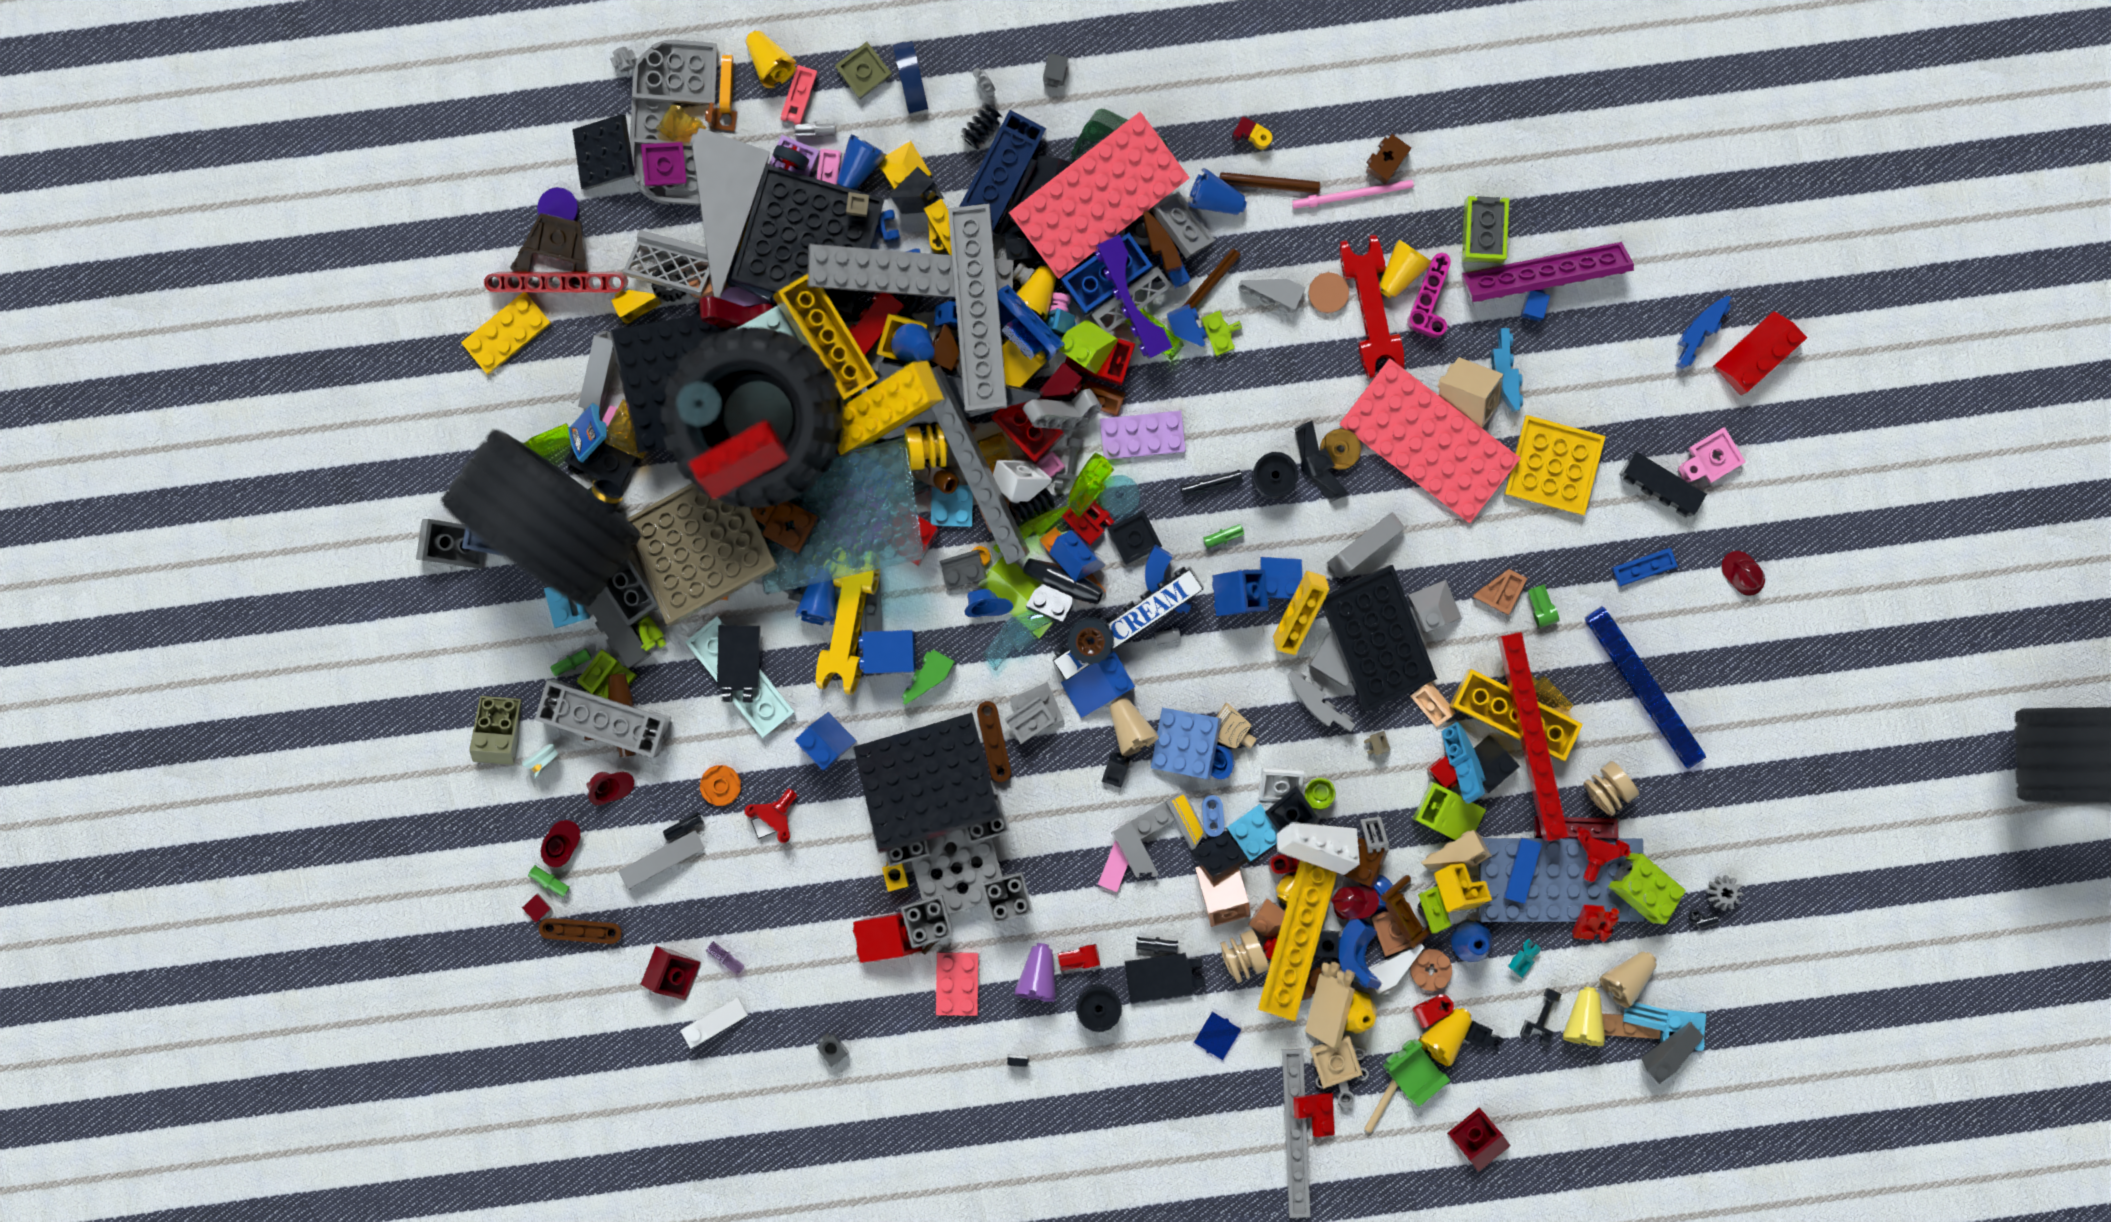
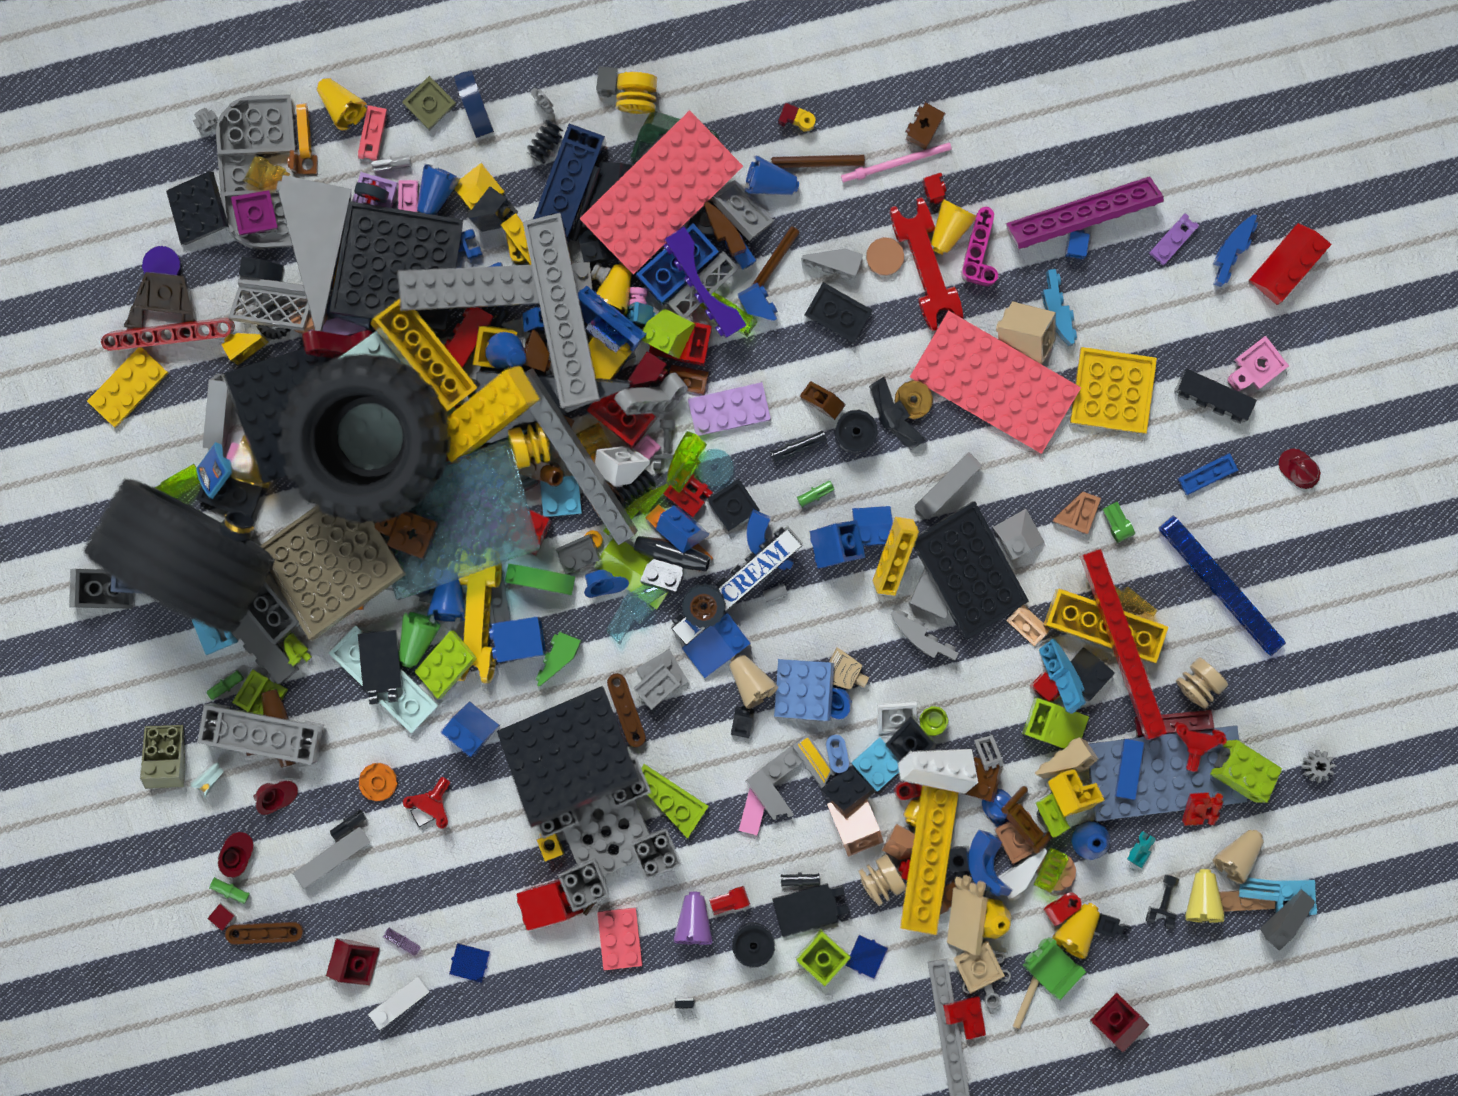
camera: 10 degrees left, 0 degrees up
(662, 225) = (260, 269): none -> black slope
(687, 403) = (301, 435): clear light blue plate -> none
(739, 460) = (355, 480): red slope -> none
(780, 636) = (416, 637): none -> bright green cone
(794, 989) = (469, 962): none -> clear blue piece
(808, 669) = (445, 664): none -> lime plate
(832, 1058) = (512, 1022): dark grey brick -> none
(857, 204) = (438, 228): dark tan tile -> none
(919, 590) = (539, 579): none -> bright green arch
(1033, 845) = (674, 801): none -> lime wing
(1085, 86) = (636, 92): none -> yellow wheel
(1171, 1030) = (822, 957): none -> lime brick
(1220, 332) = (789, 305): lime plate -> none
(1243, 437) = (822, 400): none -> reddish brown slope
(1271, 346) = (838, 312): none -> black plate
(1355, 902) = (978, 817): dark red piece -> none
(1379, 743) = (983, 667): dark tan tile -> none
(1390, 226) = (934, 188): none -> red brick
(1431, 971) = (1052, 853): none -> clear neon green slope
(1485, 229) = (1022, 180): dark grey piece -> none
(1638, 312) = (1173, 239): none -> medium lavender plate
(1701, 921) = (1299, 794): black arm -> none

